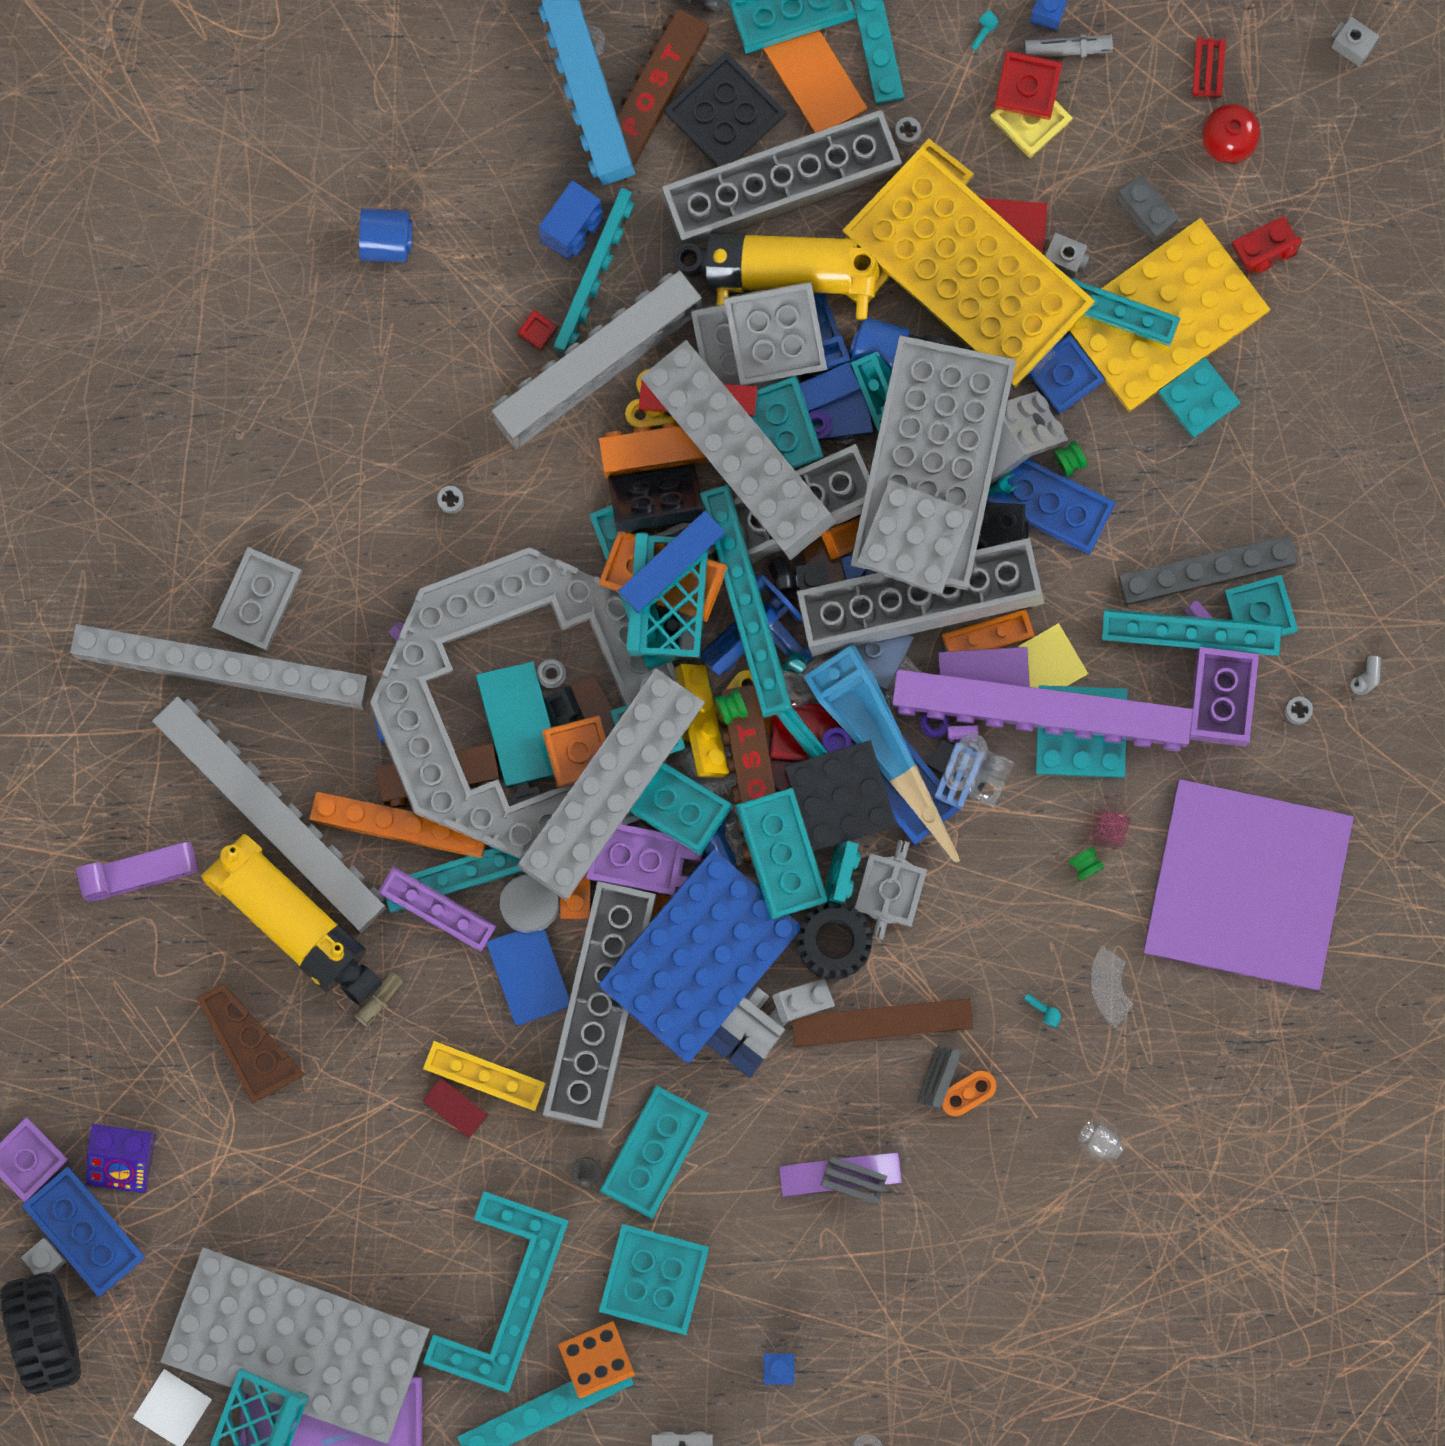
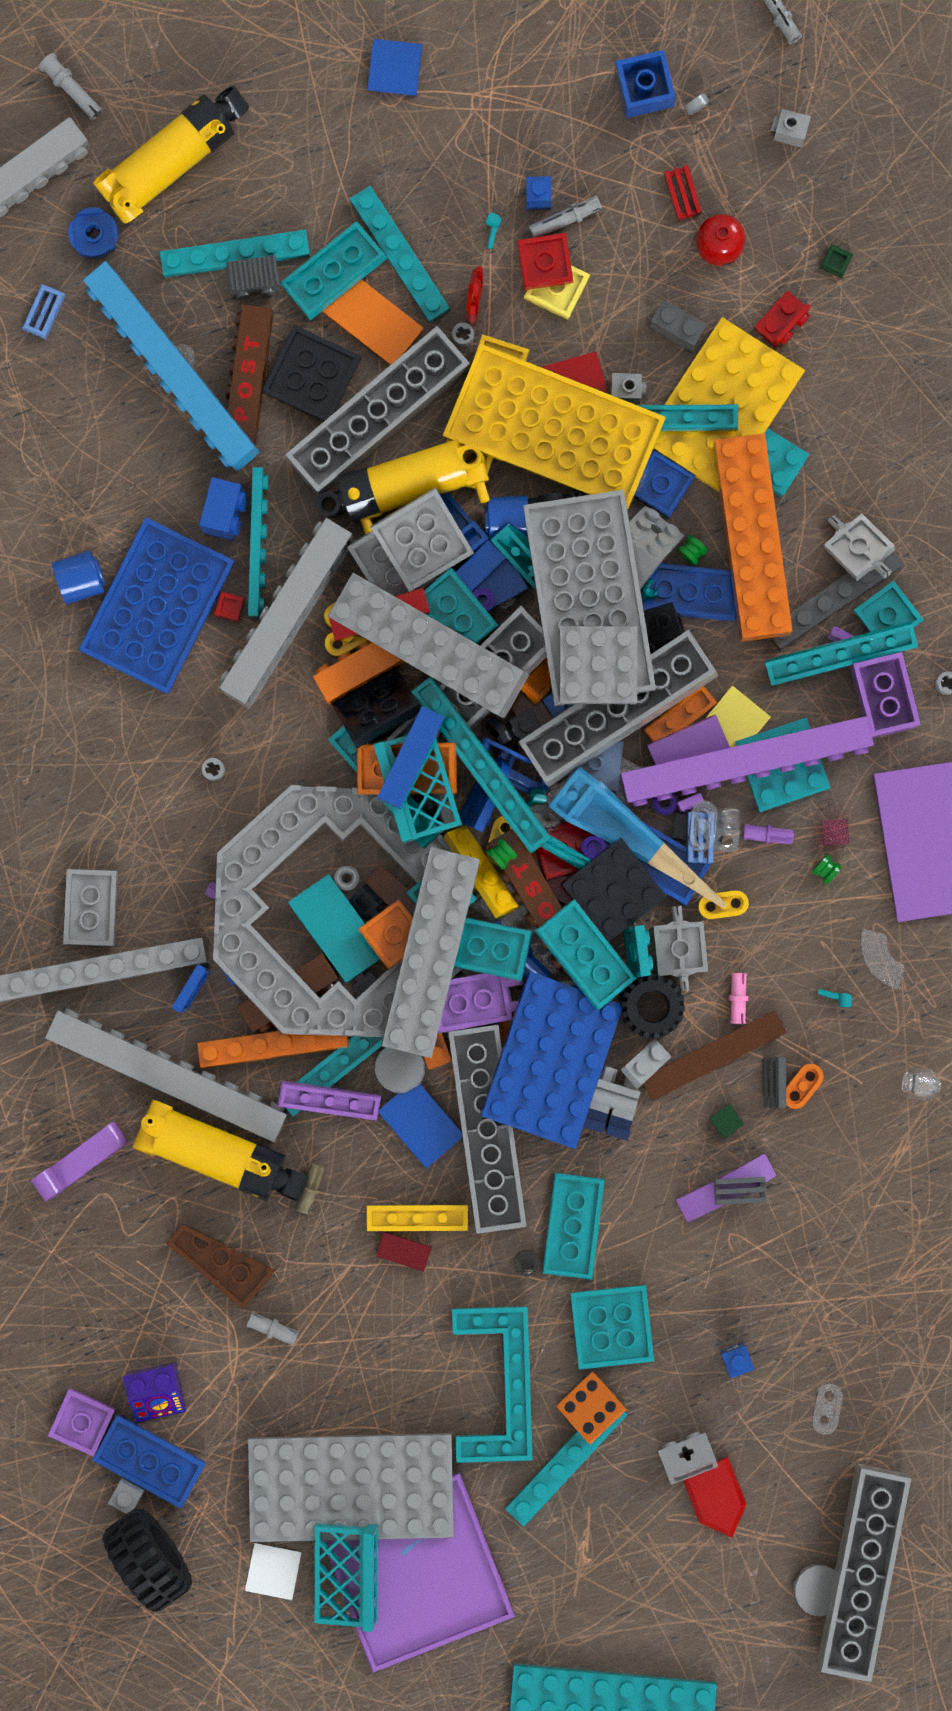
camera: 15 degrees left, 5 degrees up
(276, 1137) = (272, 1328): none -> light grey pin
(333, 727) = (191, 988): none -> blue tile
(458, 299) = (157, 605): none -> blue plate
(869, 1100) = (726, 1121): none -> dark green tile
(934, 969) = (738, 998): none -> bright pink pin
(935, 92) = (474, 296): none -> red tile
(957, 868) = (728, 911): none -> yellow plate
(1036, 802) = (768, 834): none -> medium lavender axle
(1141, 468) = (752, 537): none -> orange brick
(1256, 523) = (859, 547): none -> light grey plate
(1350, 204) = (836, 261): none -> dark green tile

